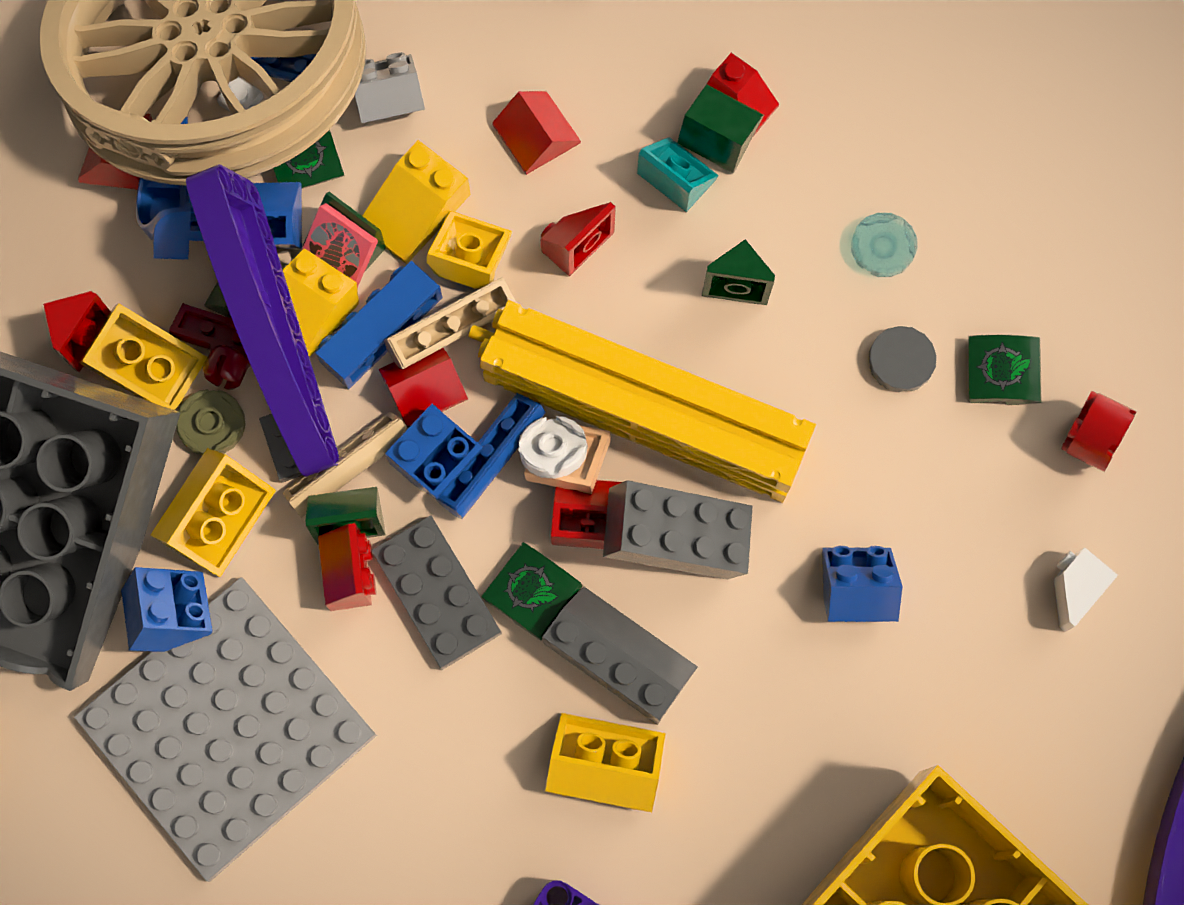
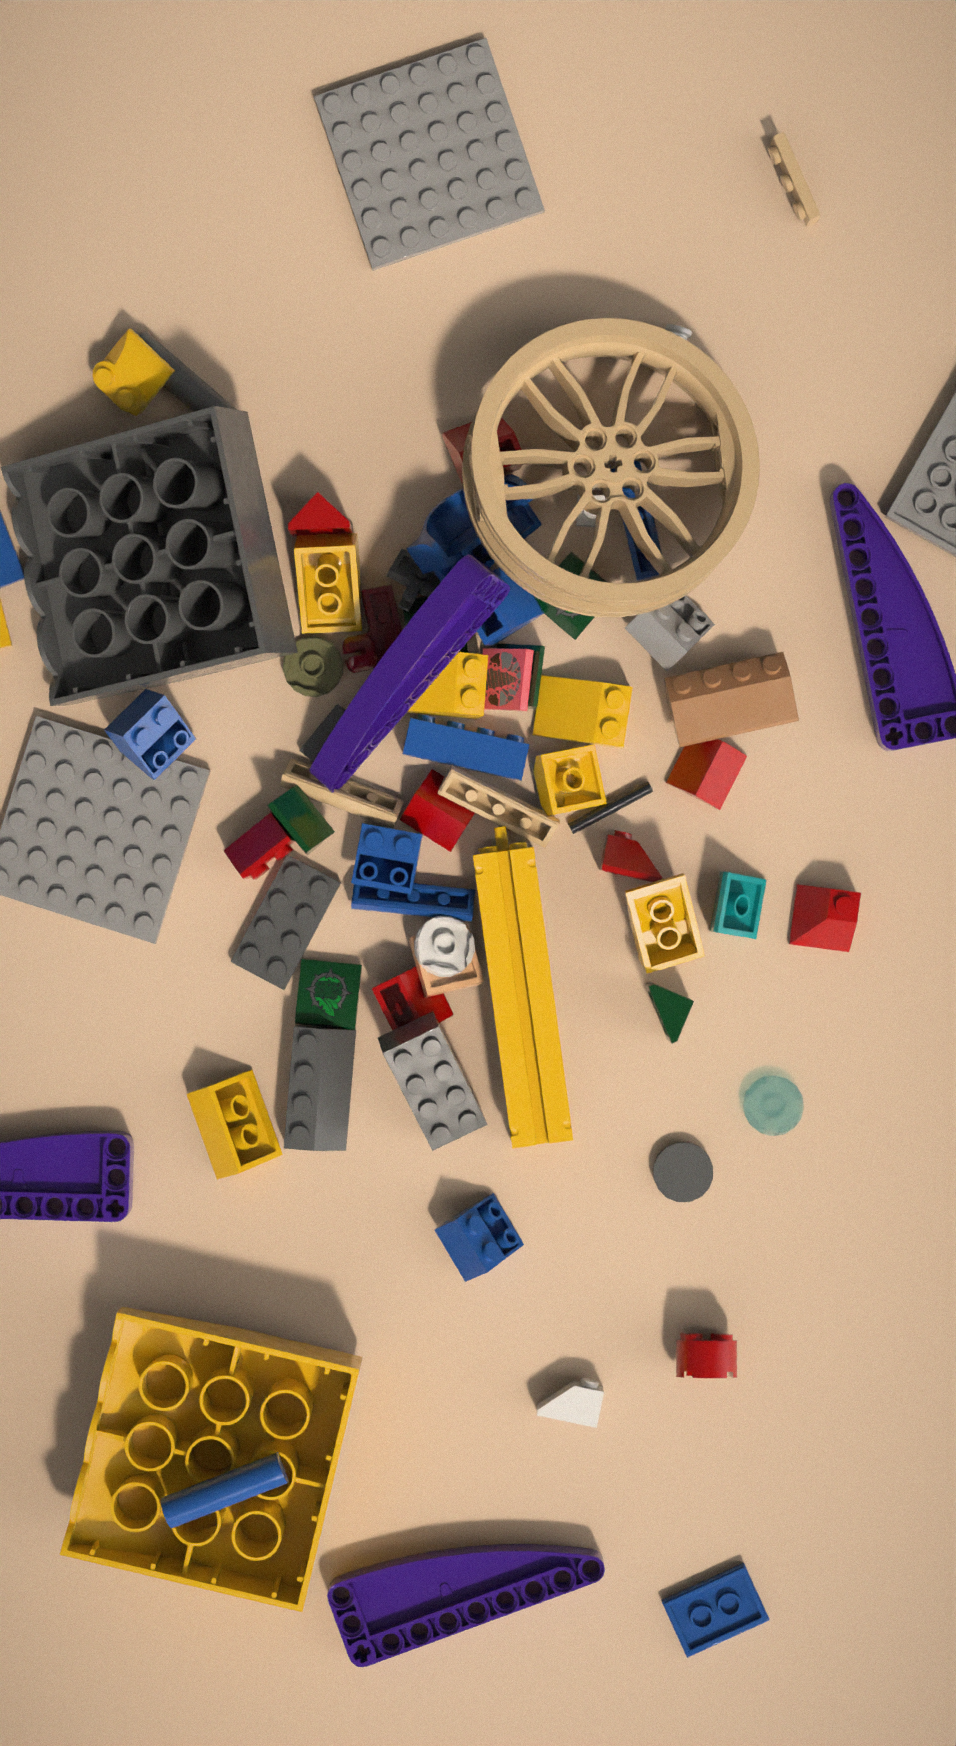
camera: 60 degrees right, 15 degrees up
(188, 277) = (409, 574): none -> dark grey plate
(213, 512) = (244, 717): yellow slope -> none
(484, 67) = (731, 699): none -> medium nougat slope
(518, 232) = (610, 808): none -> black bar
(654, 232) = (664, 923): none -> yellow slope
(719, 128) = (793, 919): dark green slope -> none
(1004, 369) = (720, 1256): dark green slope -> none

